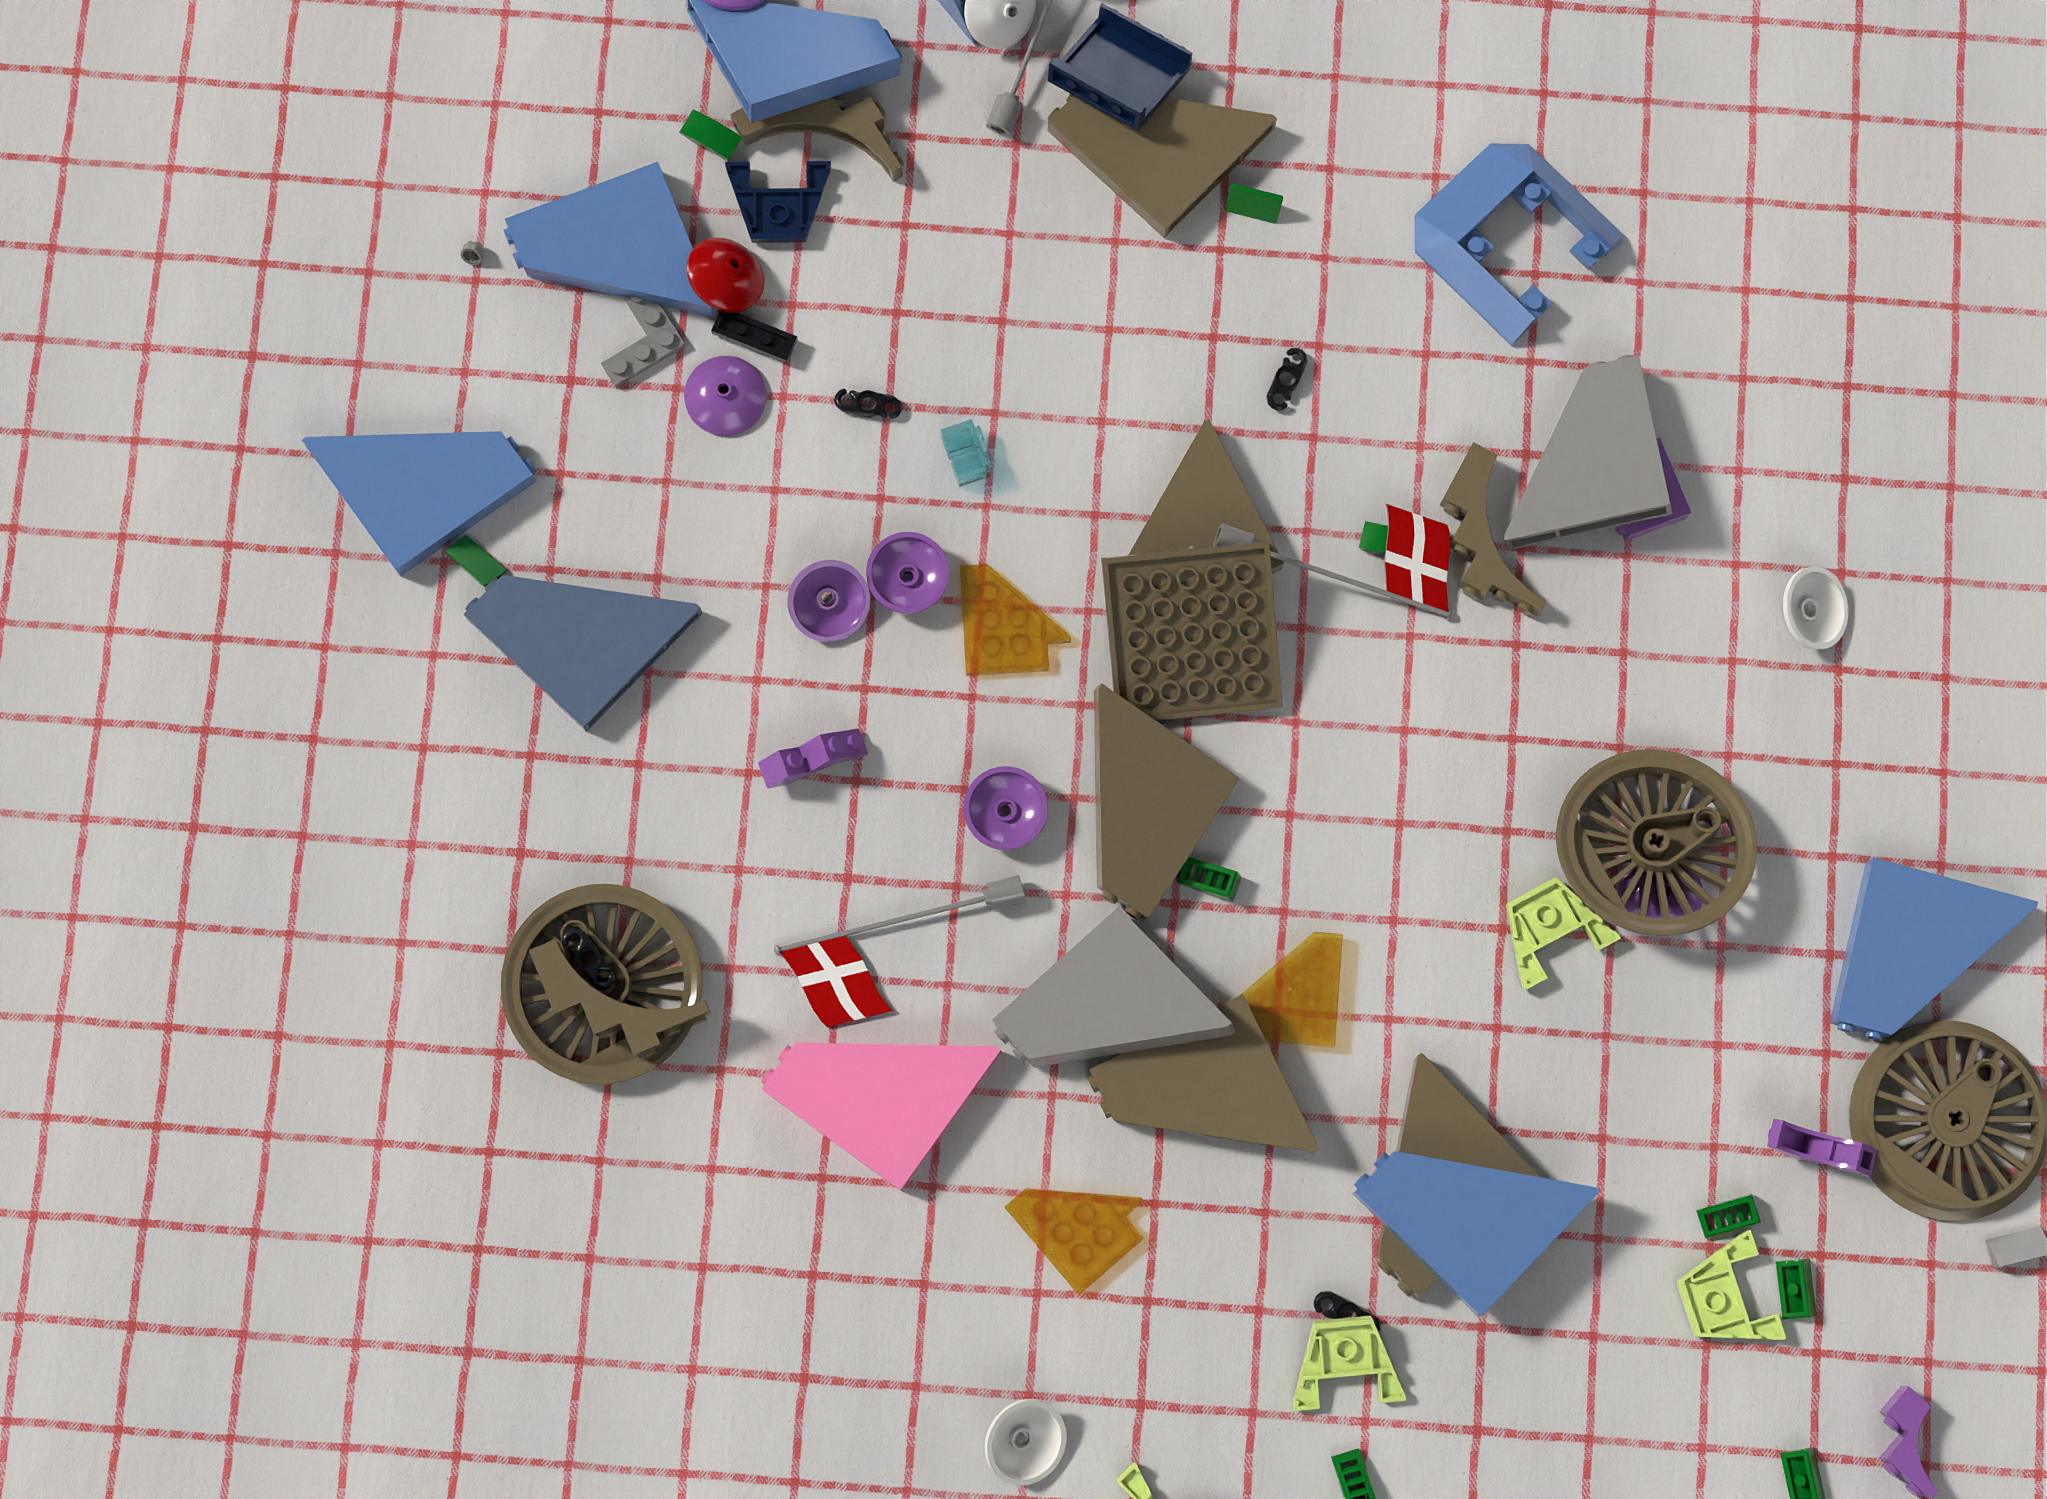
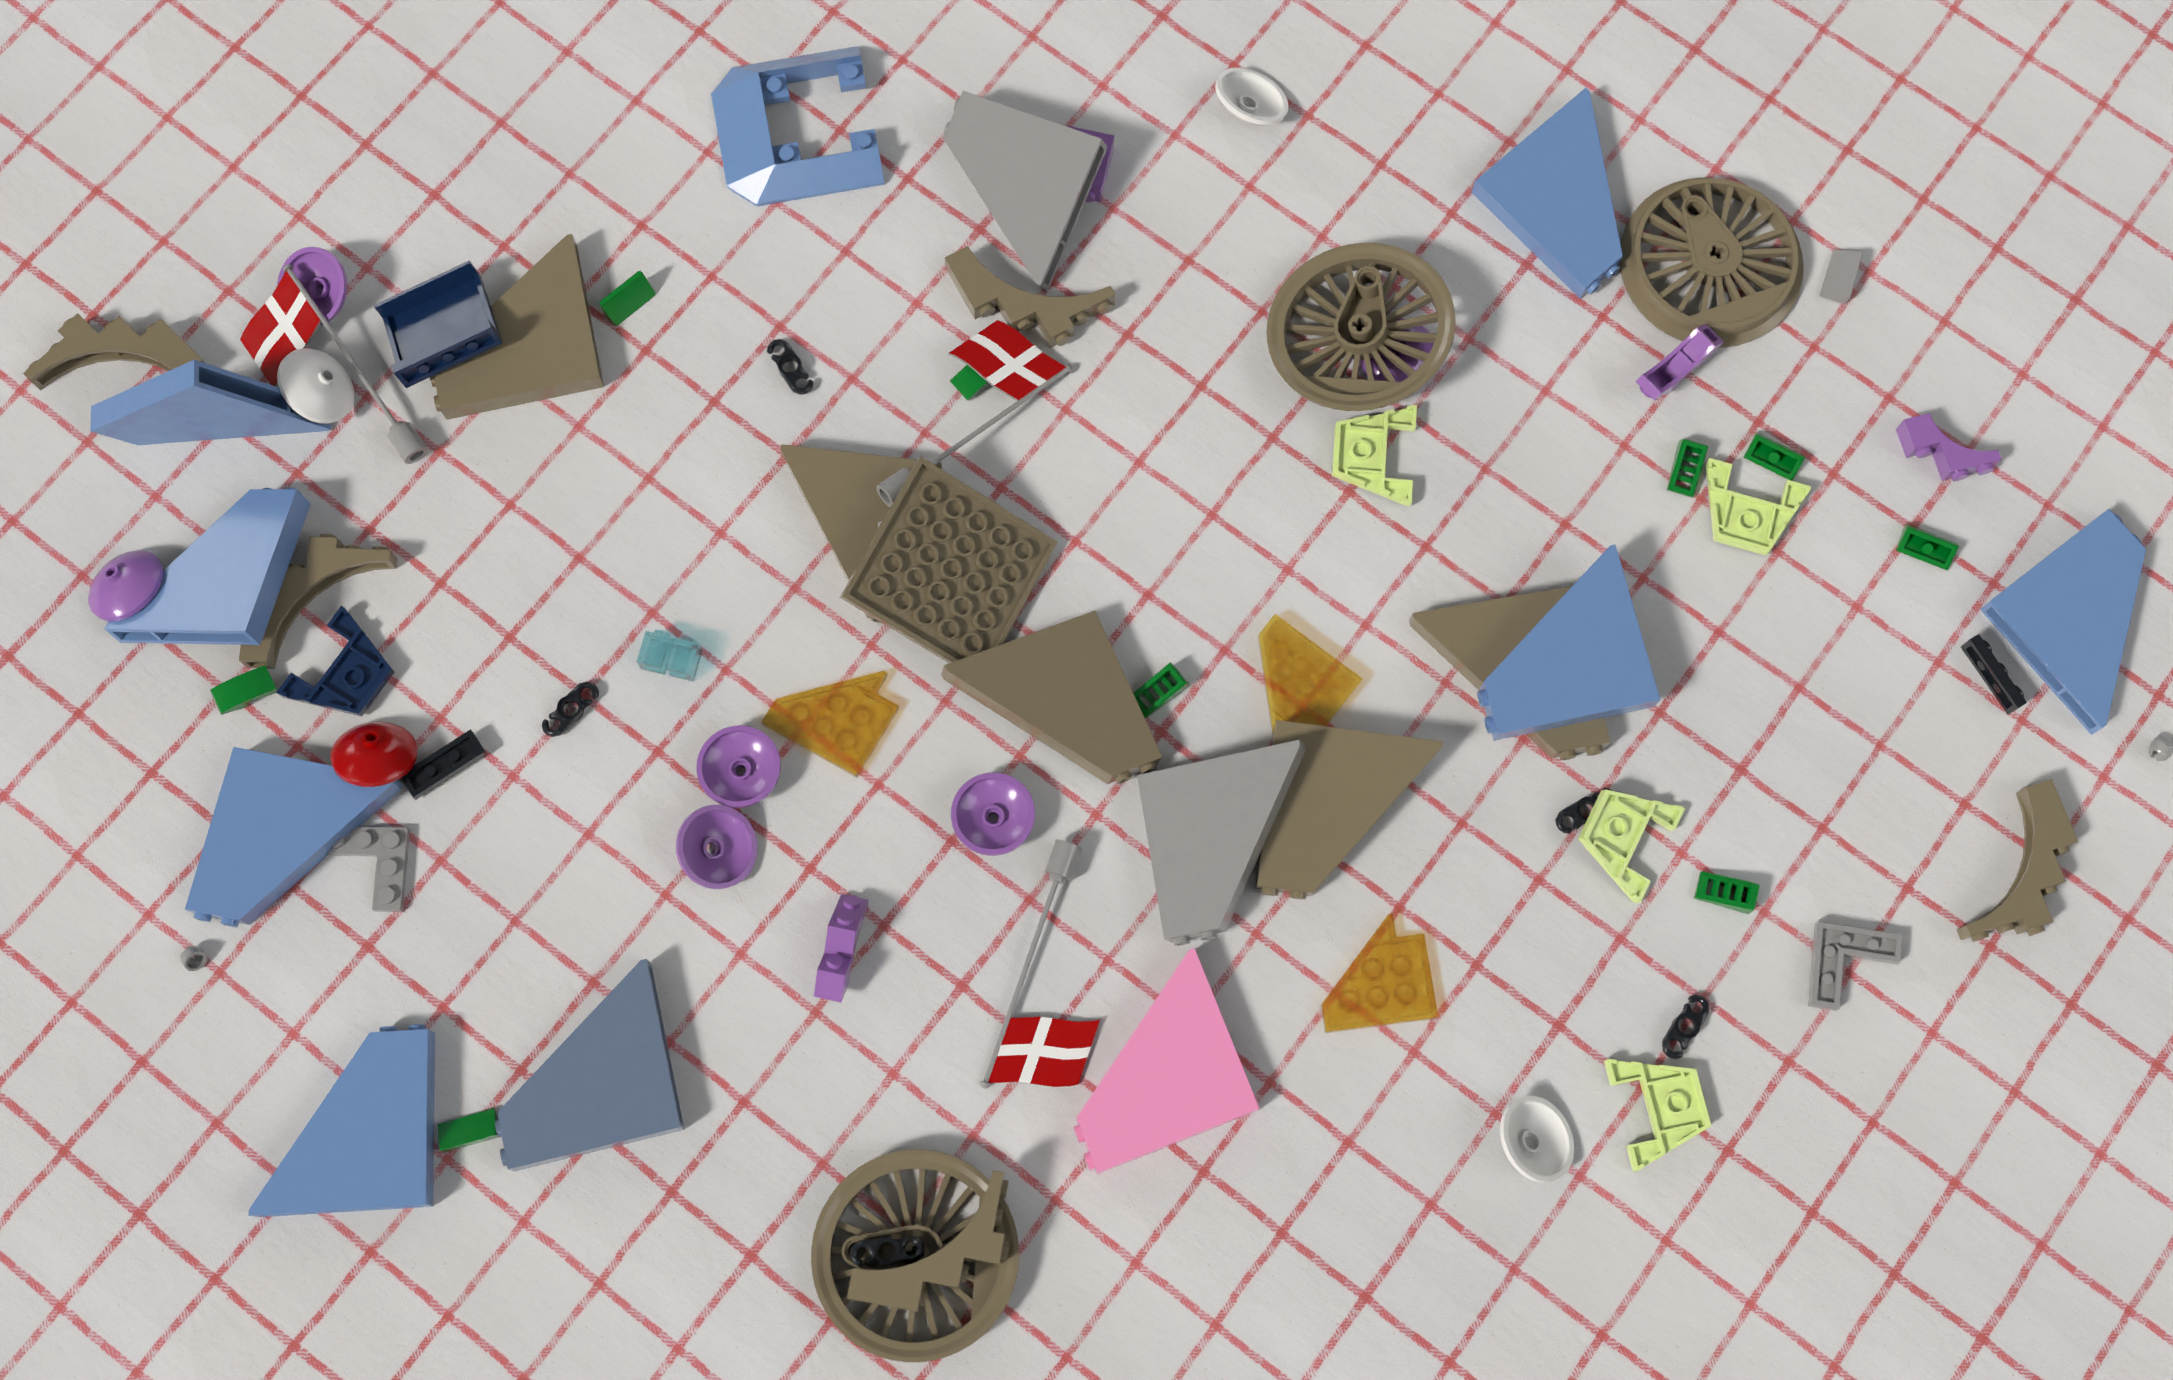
camera: 55 degrees left, 5 degrees down
(728, 412) = (486, 837): medium lavender dish -> none

